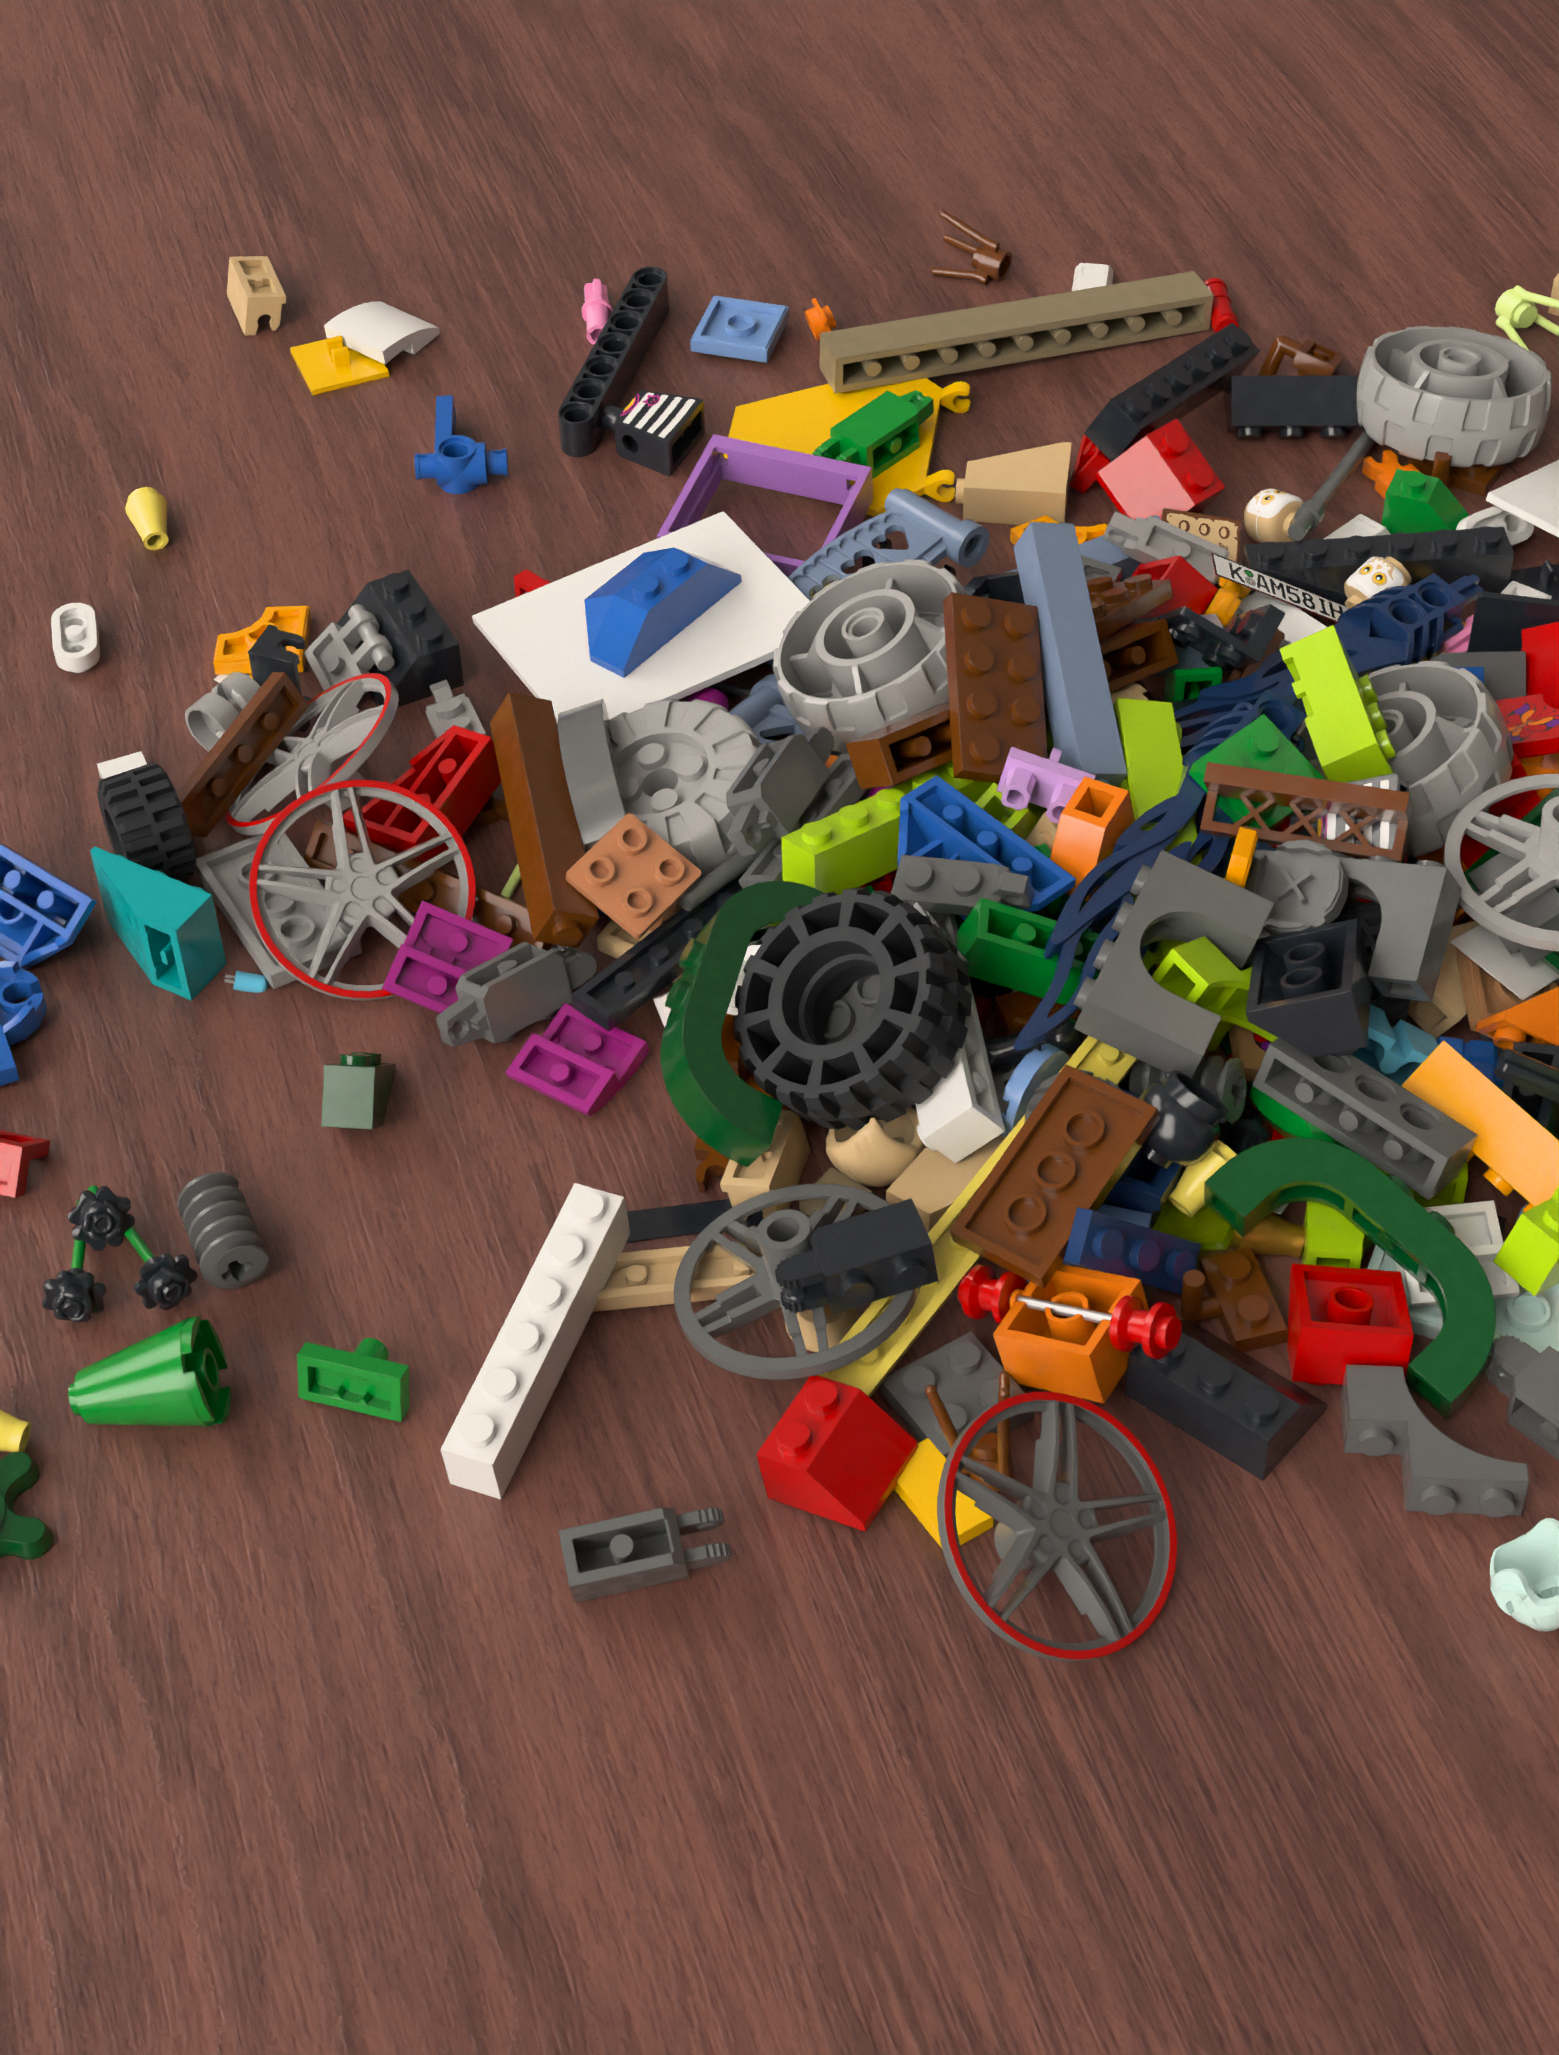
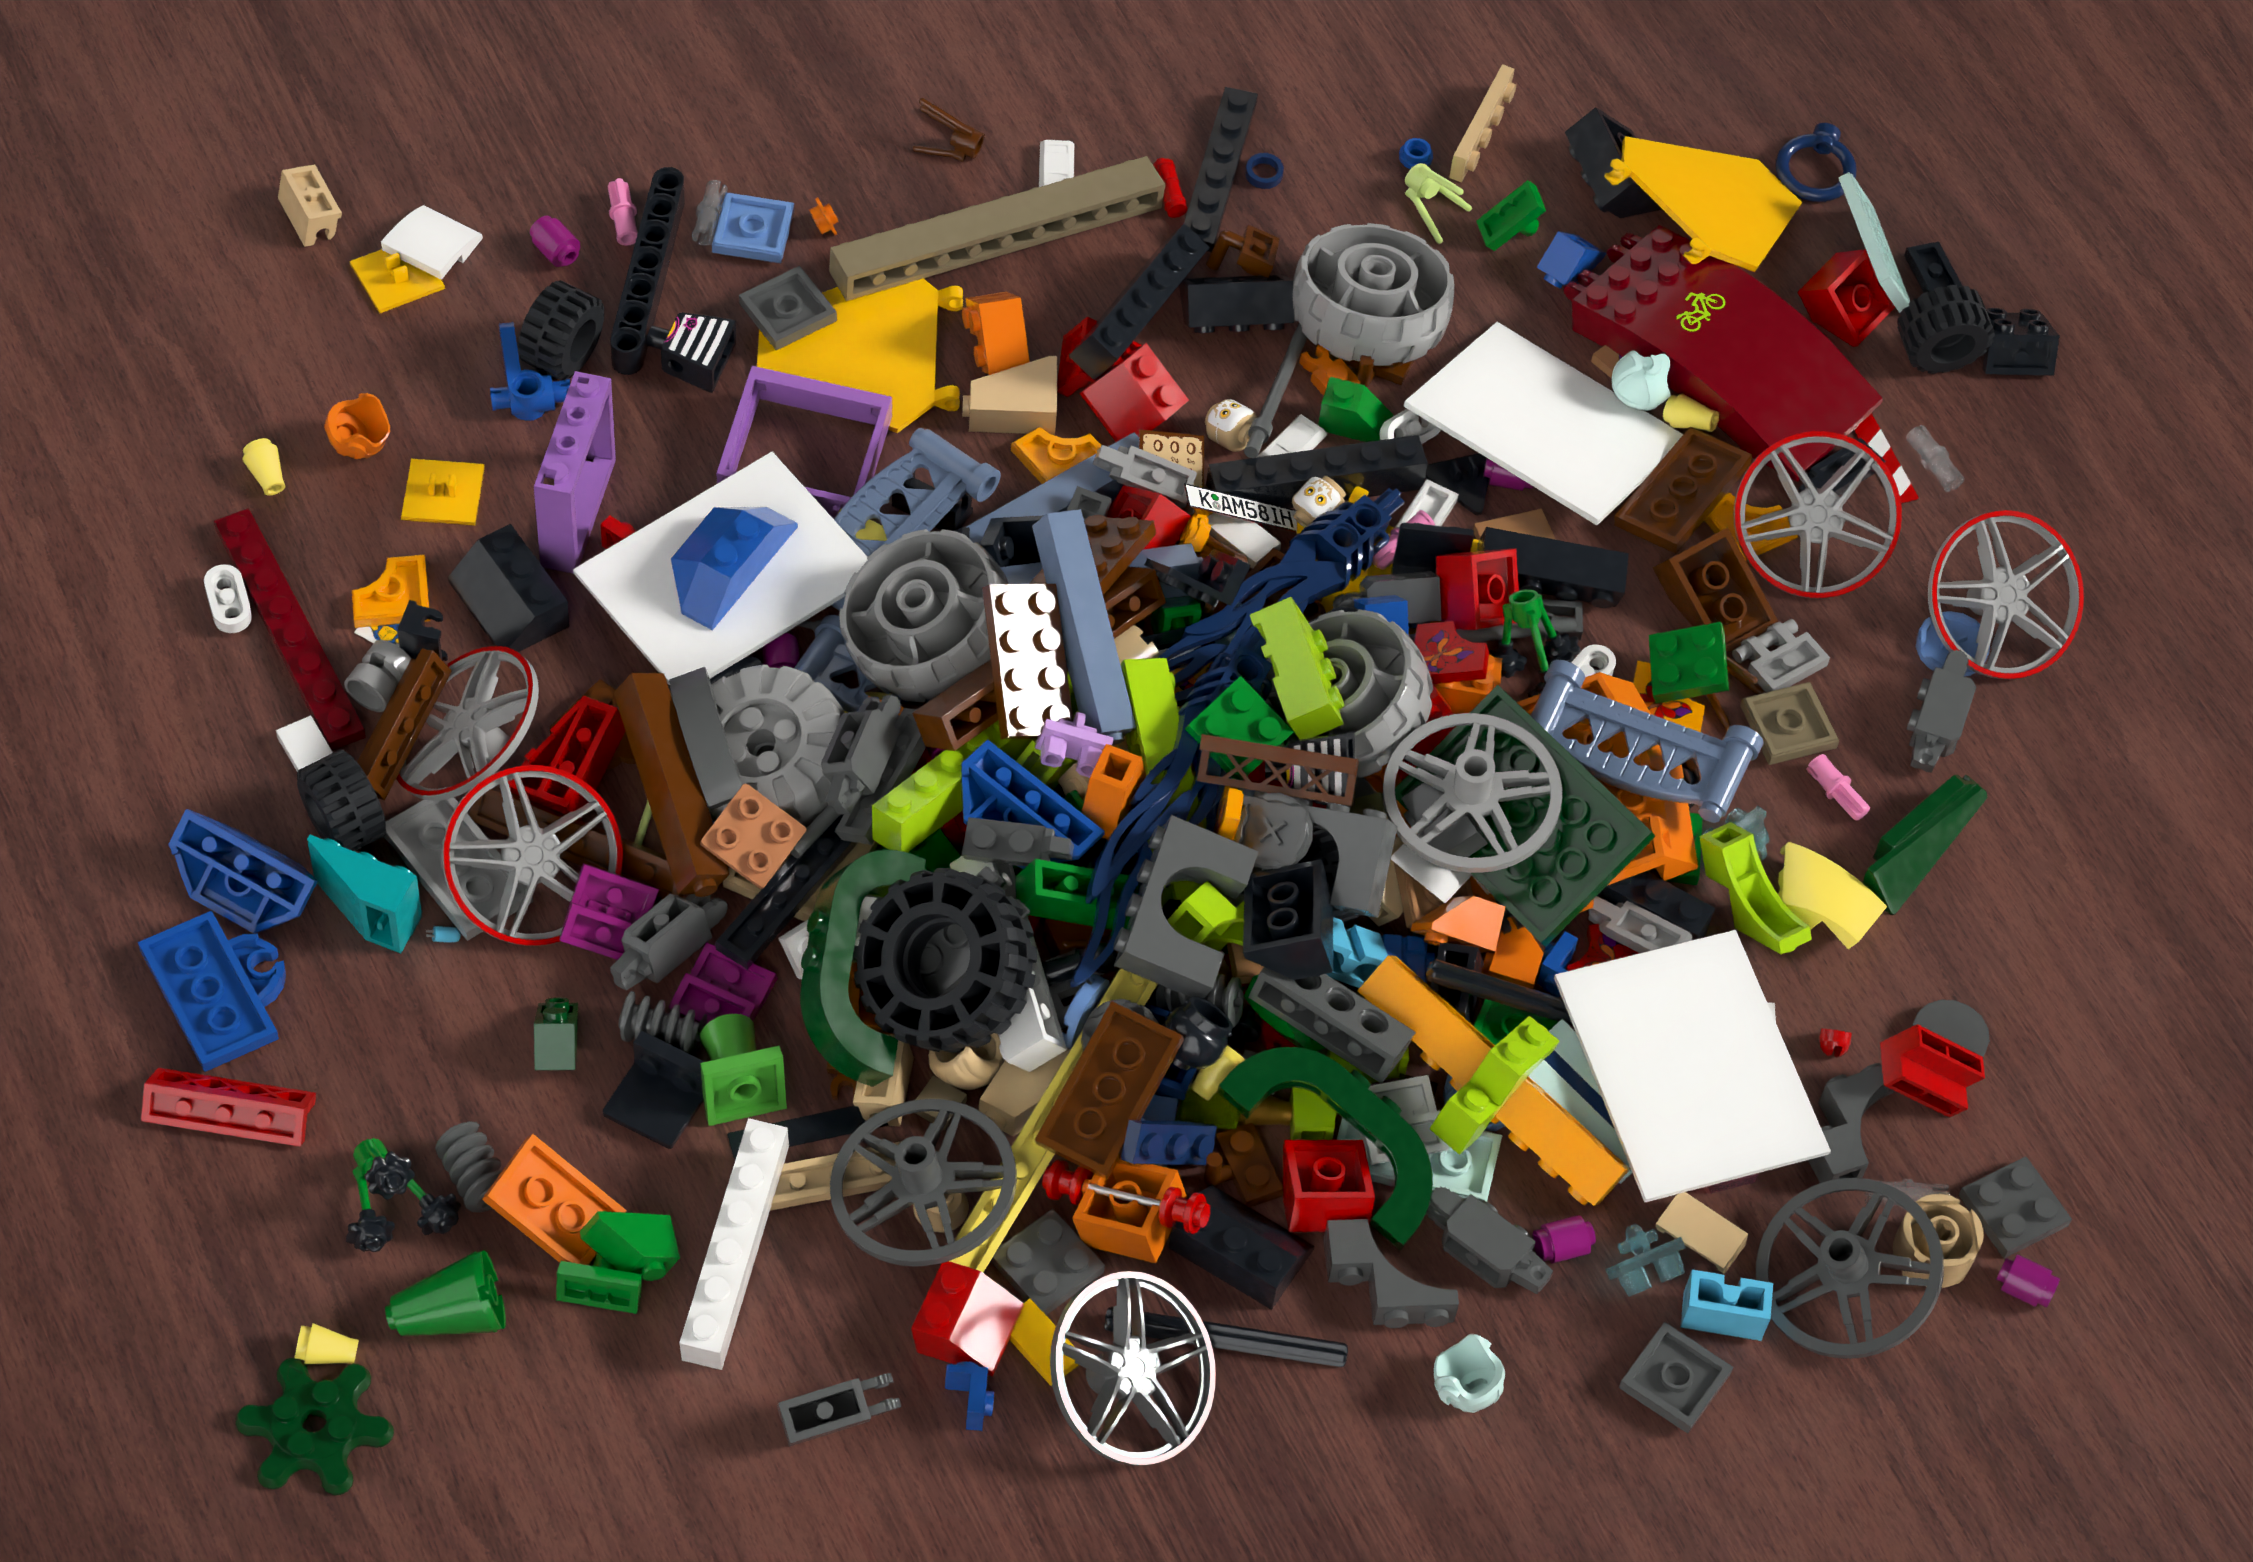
camera: 15 degrees left, 10 degrees up
(139, 668) = (290, 629): none -> dark red plate
(259, 482) = (357, 426): none -> orange cap
(311, 1273) = (548, 1200): none -> orange plate
(334, 651) = (462, 617): light grey plate -> none
(345, 553) = (443, 492): none -> yellow piece
(405, 1326) = (633, 1242): none -> green slope
(451, 711) = (572, 672): light grey hinge -> none
(470, 582) = (570, 507): none -> medium lavender window
(479, 1161) = (658, 1091): none -> black bracket
(492, 1091) = (670, 1028): none -> dark grey piece
(503, 397) = (561, 330): none -> black tyre
(516, 332) = (555, 241): none -> magenta brick
(578, 1141) = (739, 1077): none -> bright green plant
(690, 314) = (709, 212): none -> clear pin
(766, 395) = (787, 308): none -> dark grey plate
(836, 1534) = (971, 1378): none -> blue bracket
(859, 1261) = (973, 1173): black hinge -> none
(879, 431) = (889, 352): green hinge -> none
(993, 1448) = (1084, 1321): reddish brown plant -> none
(1003, 414) = (999, 329): none -> orange brick
(1230, 1514) = (1247, 1339): none -> black axle
(1282, 286) = (1220, 164): none -> black plate
(1331, 288) = (1264, 158): none -> dark blue piece
(1507, 280) = (1415, 152): none -> blue plate

